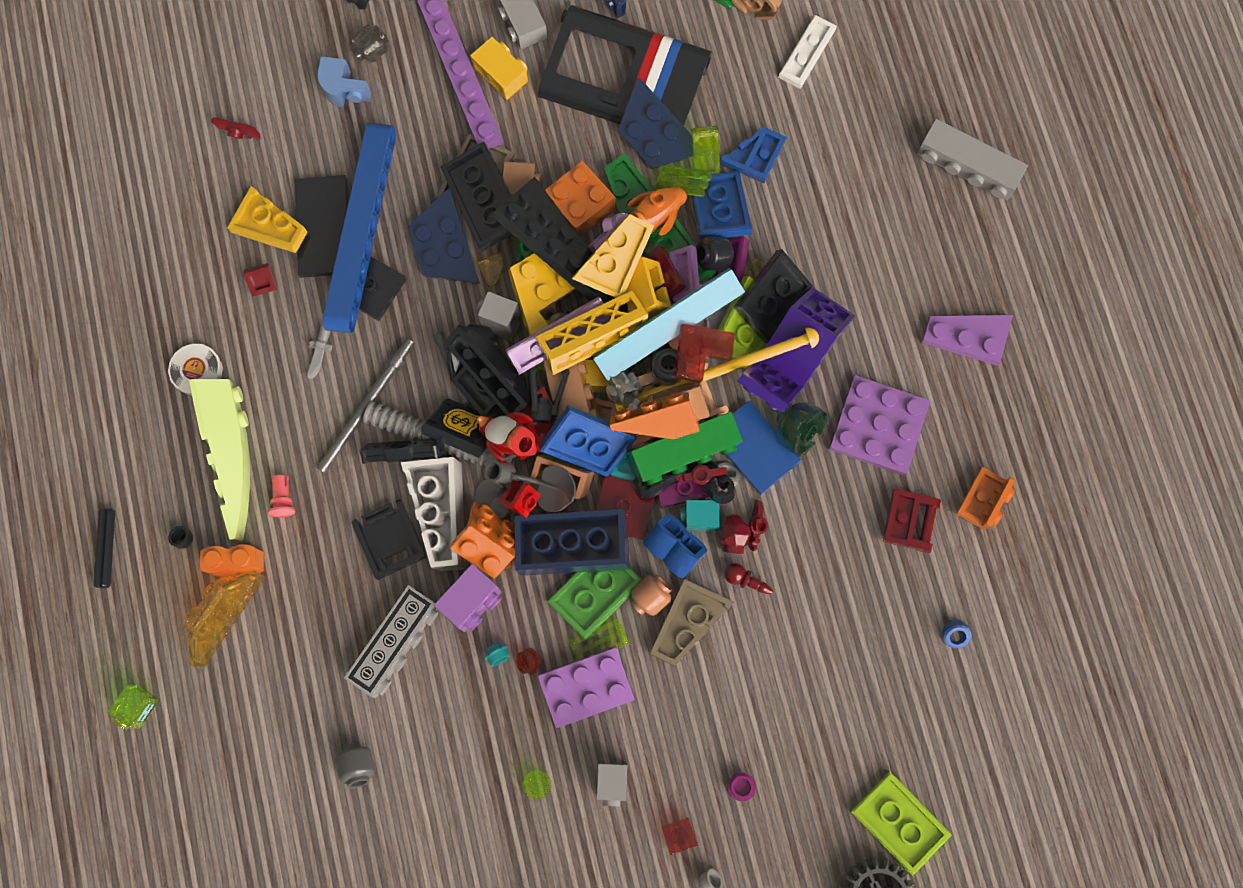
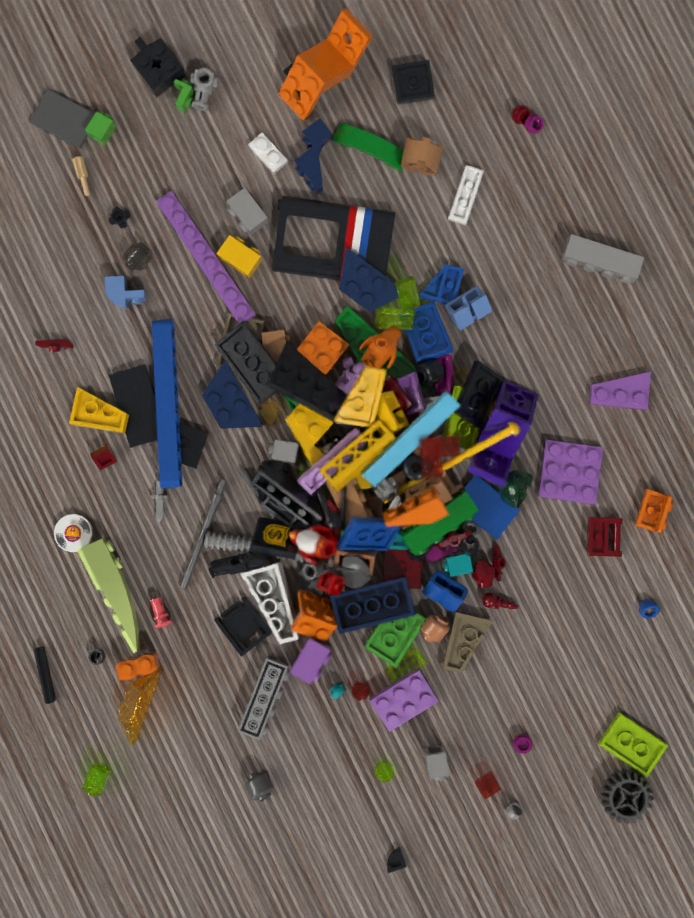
camera: 15 degrees left, 10 degrees up
(782, 184) = (468, 307): none -> medium blue piece

